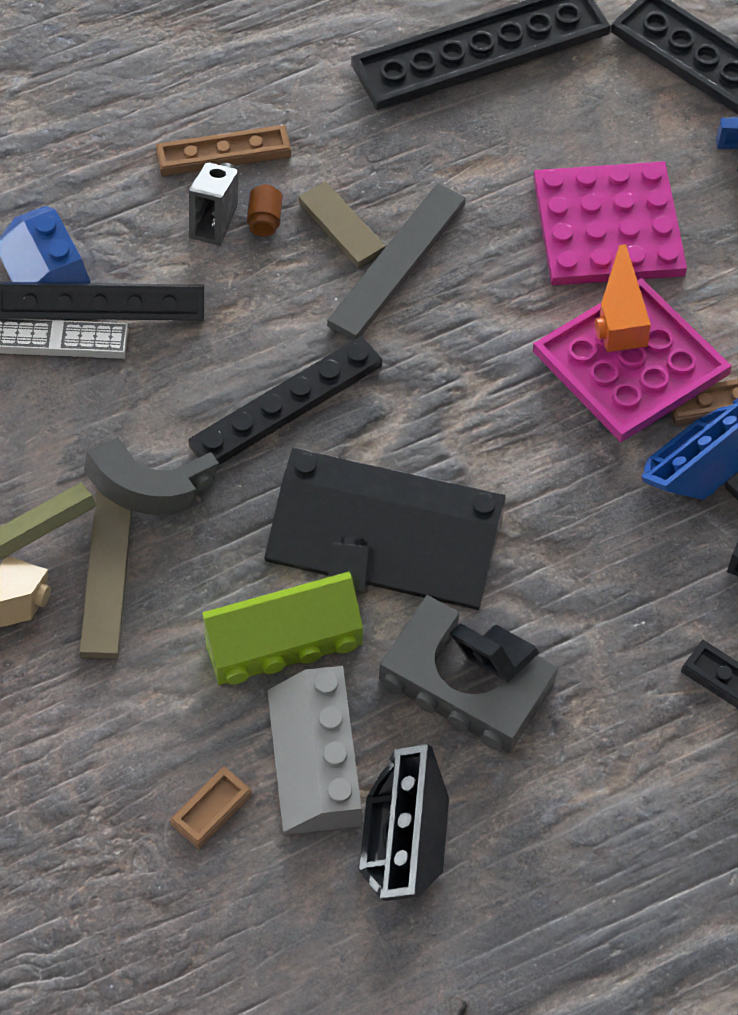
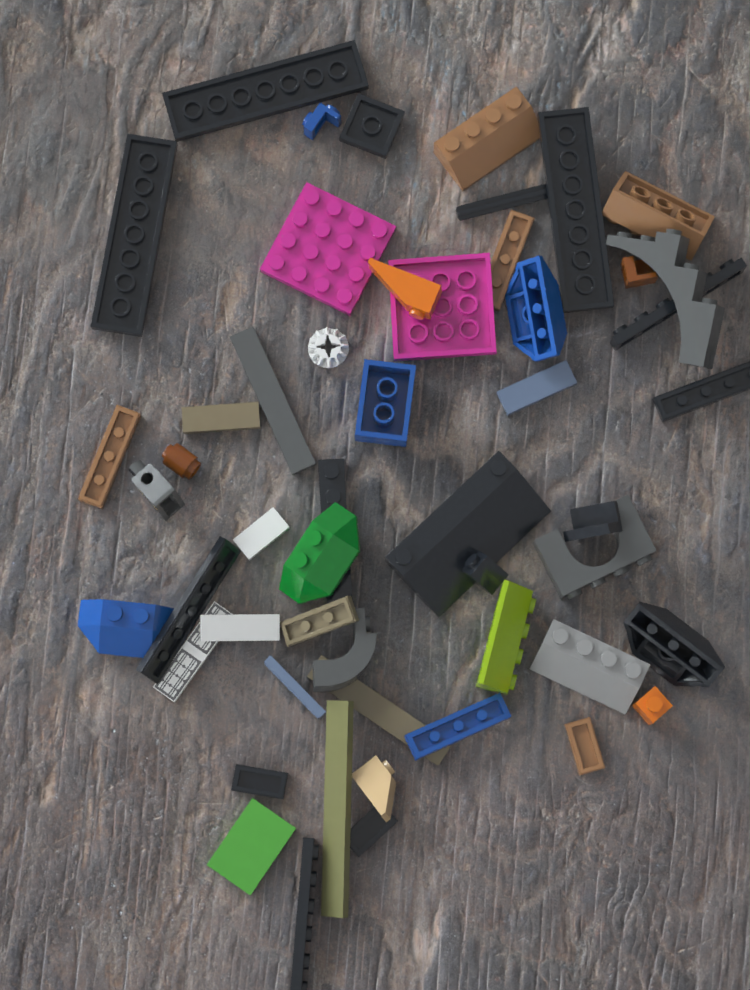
camera: 55 degrees left, 20 degrees up
(80, 442) = (294, 687): none -> sand blue tile
(112, 360) = (240, 627): none -> white tile
(141, 642) = (457, 726): none -> blue plate
(172, 430) = (319, 621): none -> dark tan tile
(237, 329) = (261, 533): none -> white tile
(251, 384) = (321, 556): none -> green wedge
(313, 850) = (652, 705): none -> orange brick
(475, 358) = (385, 403): none -> blue brick
(495, 291) = (337, 354): none -> white gear
(615, 509) = (536, 387): none -> sand blue tile

